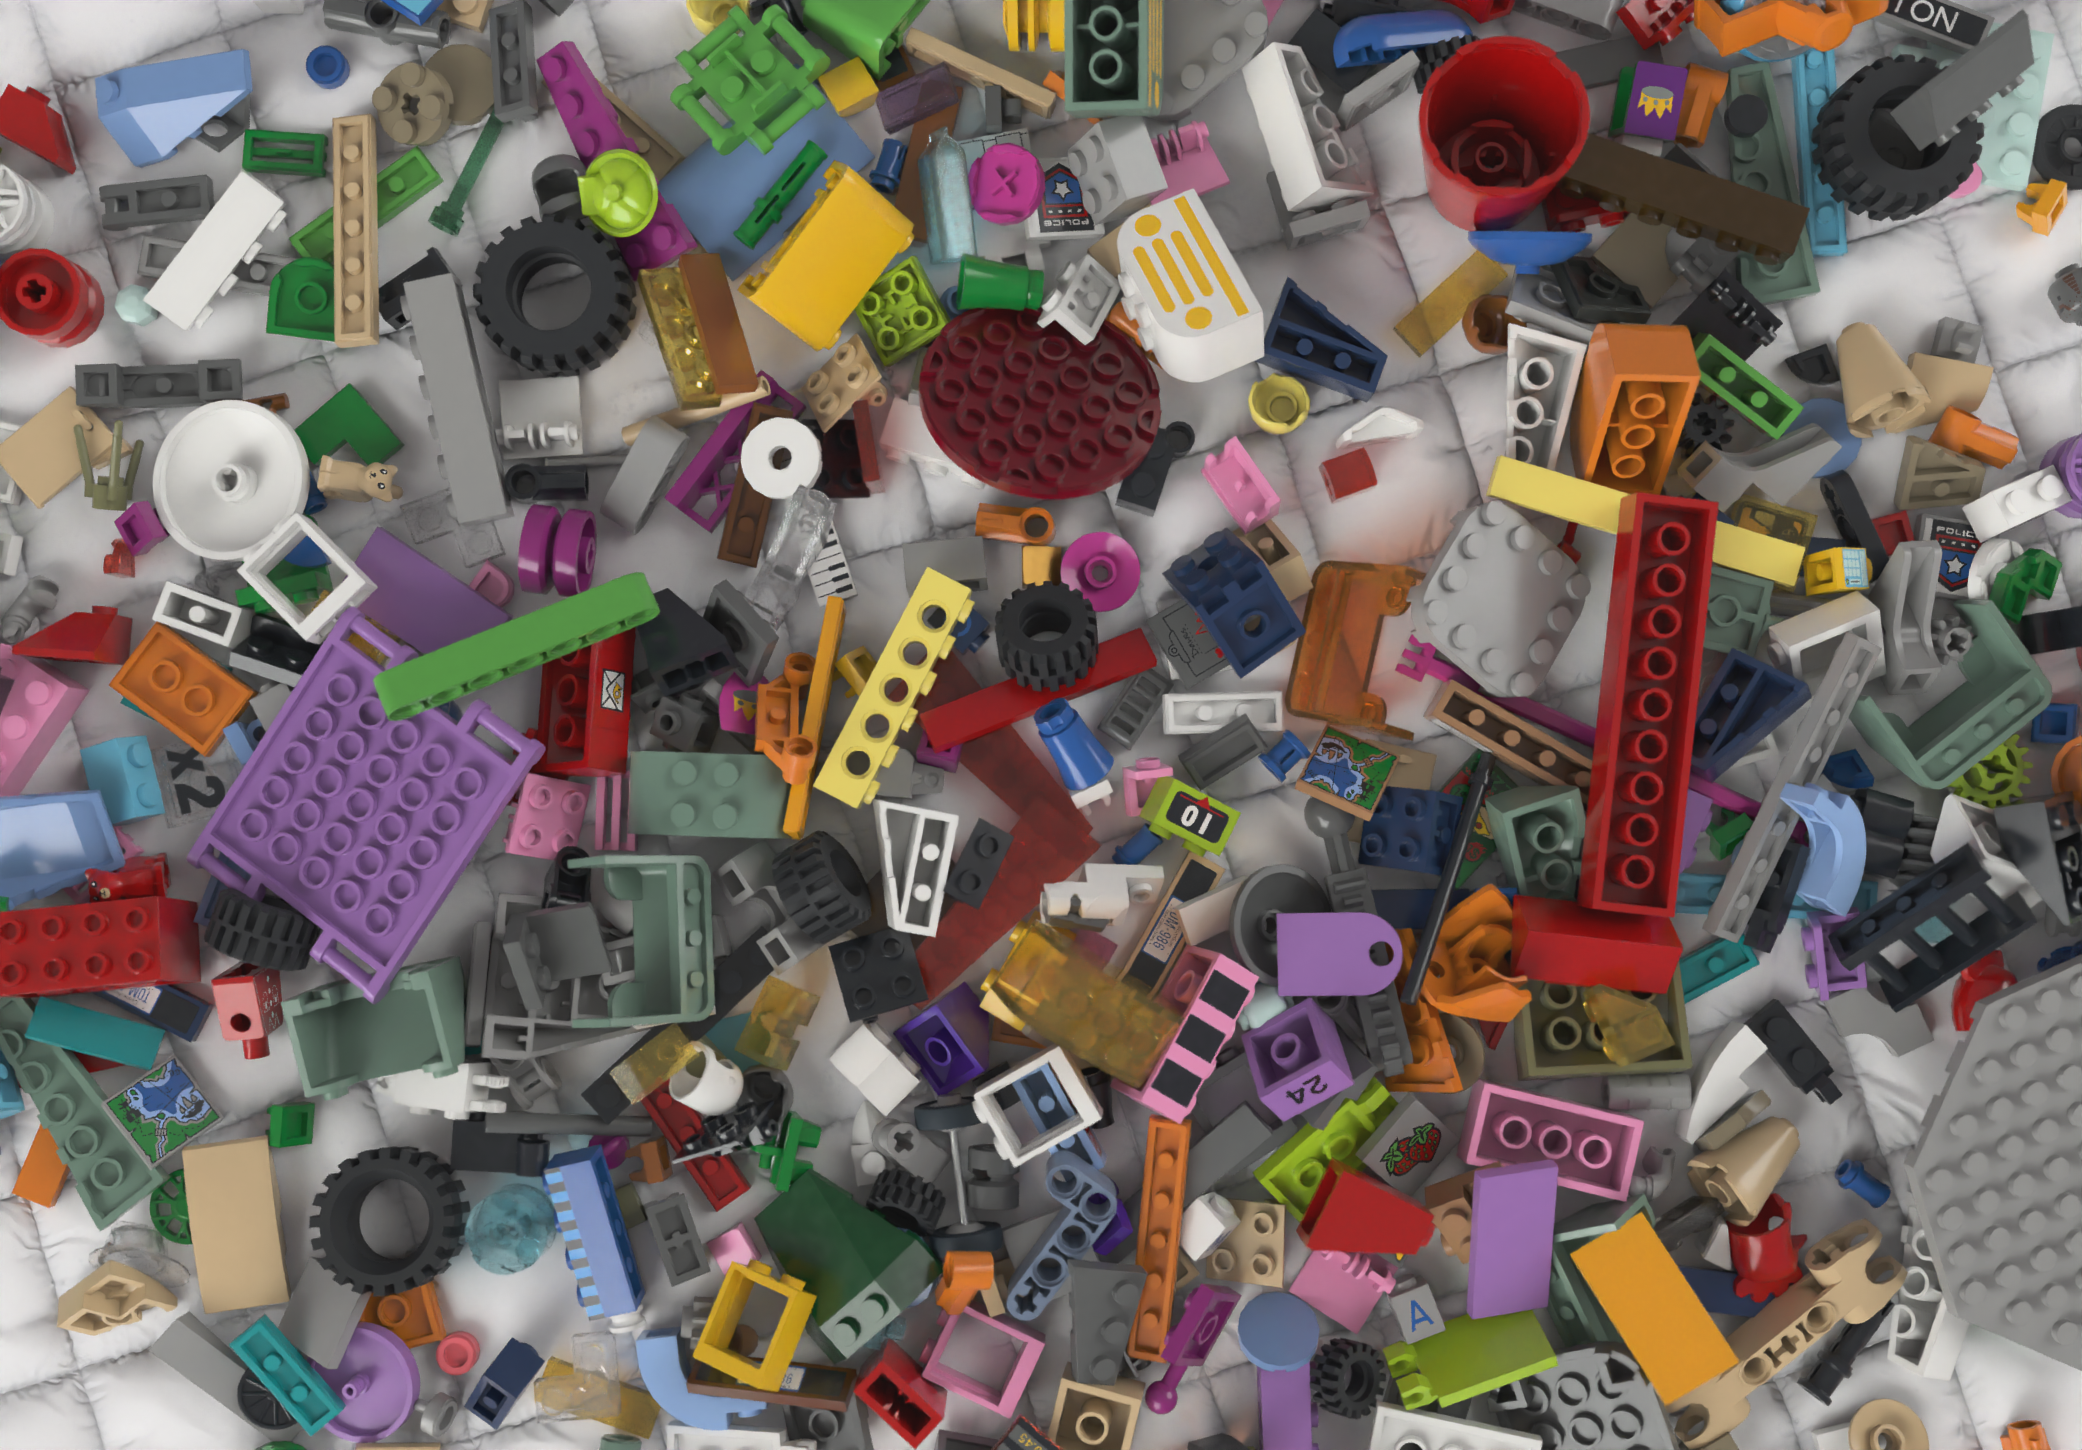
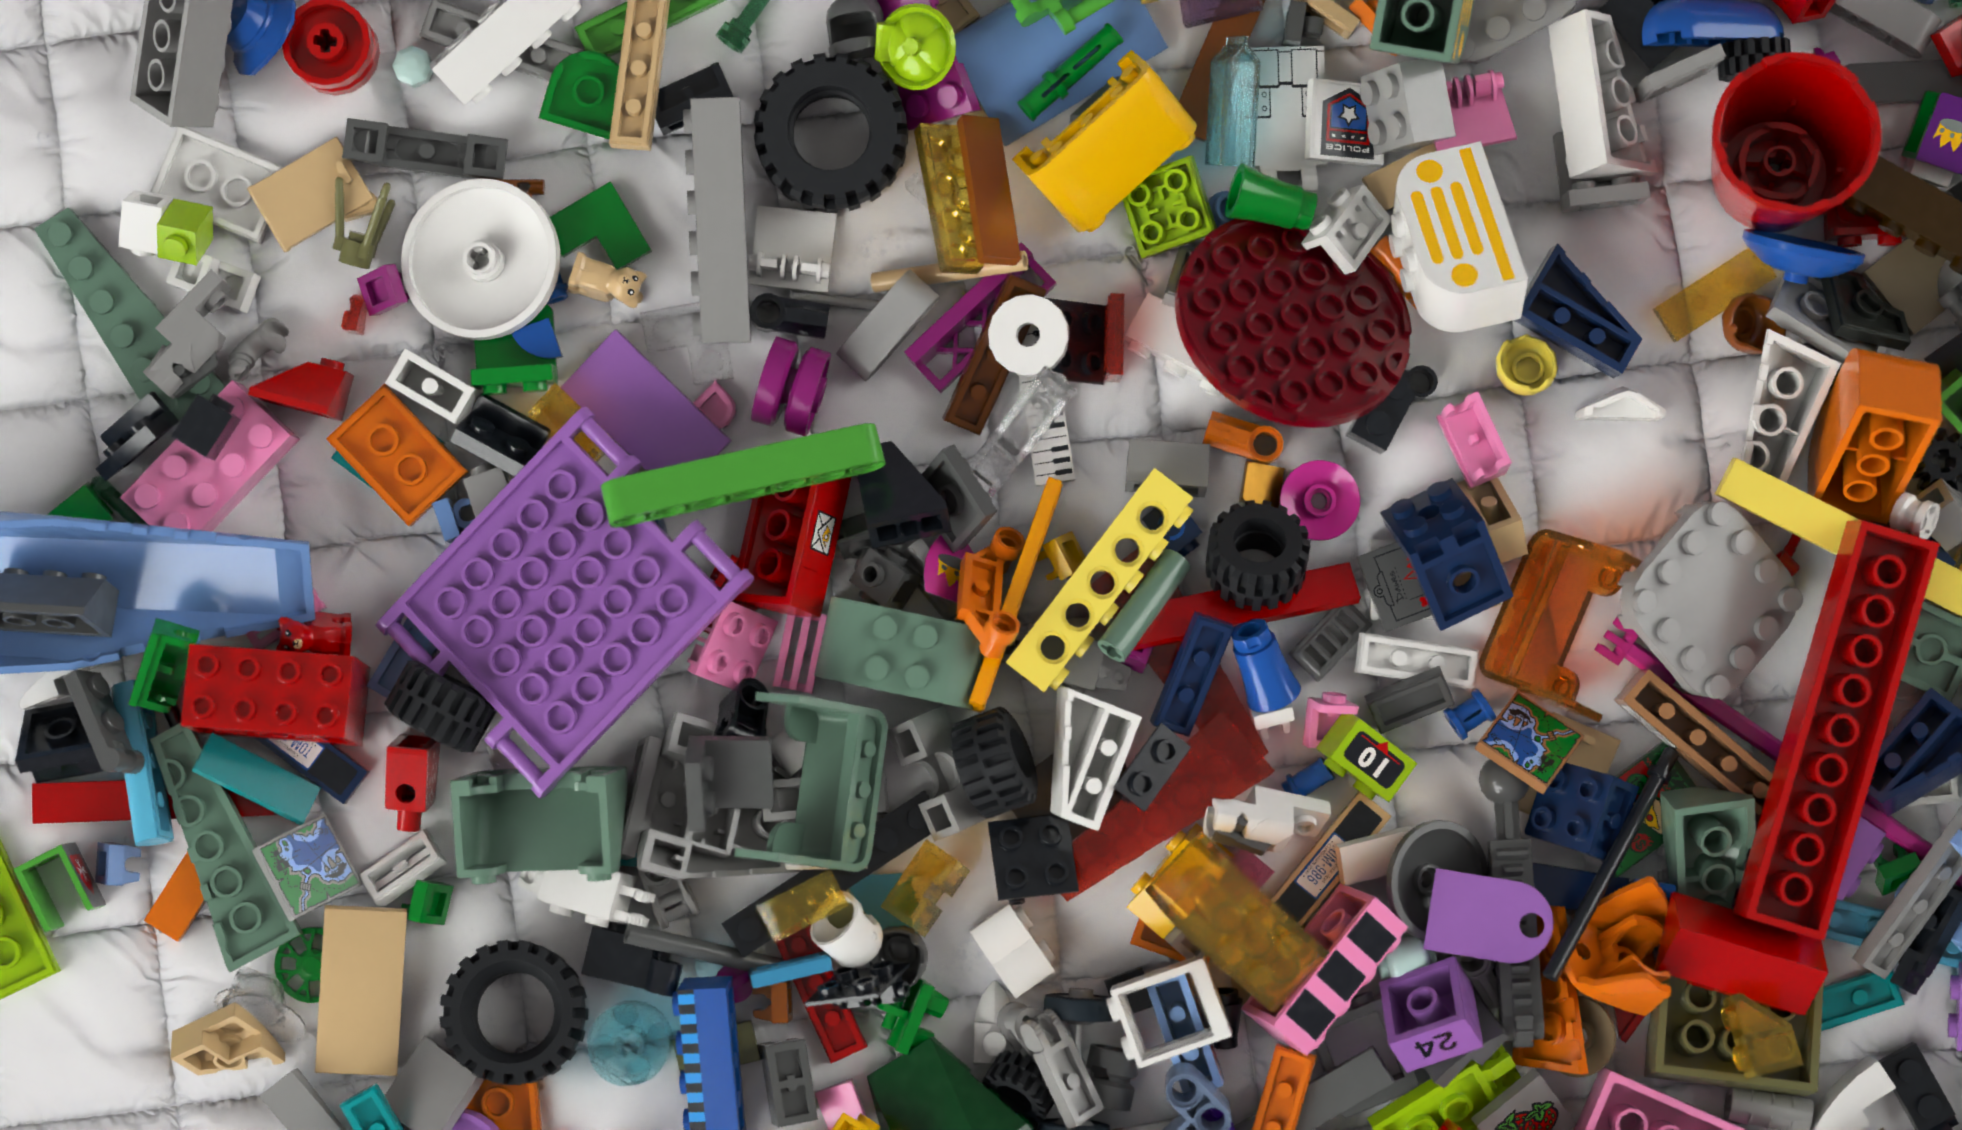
camera: 15 degrees right, 0 degrees up
(125, 778) = (329, 528): medium azure brick -> none
(193, 783) = (388, 549): clear tile -> none
(260, 1098) = (404, 872): none -> white tile
(286, 537) = (560, 412): white window -> none
(655, 1128) = (790, 969): none -> dark azure tile
(842, 381) = (1100, 269): tan hinge -> none
(886, 173) = (1180, 60): blue pin -> none
(941, 1180) = (1062, 1068): none -> light grey hinge
(942, 705) = (1144, 605): none -> sand green piece
(949, 1039) = (1089, 935): dark purple slope -> none
(1002, 763) = (1192, 673): none -> dark blue tile
(1006, 184) = (1295, 101): dark pink tile -> none
(1348, 475) = (1582, 448): clear red piece -> none
(1687, 480) = (1914, 516): none -> white wheel

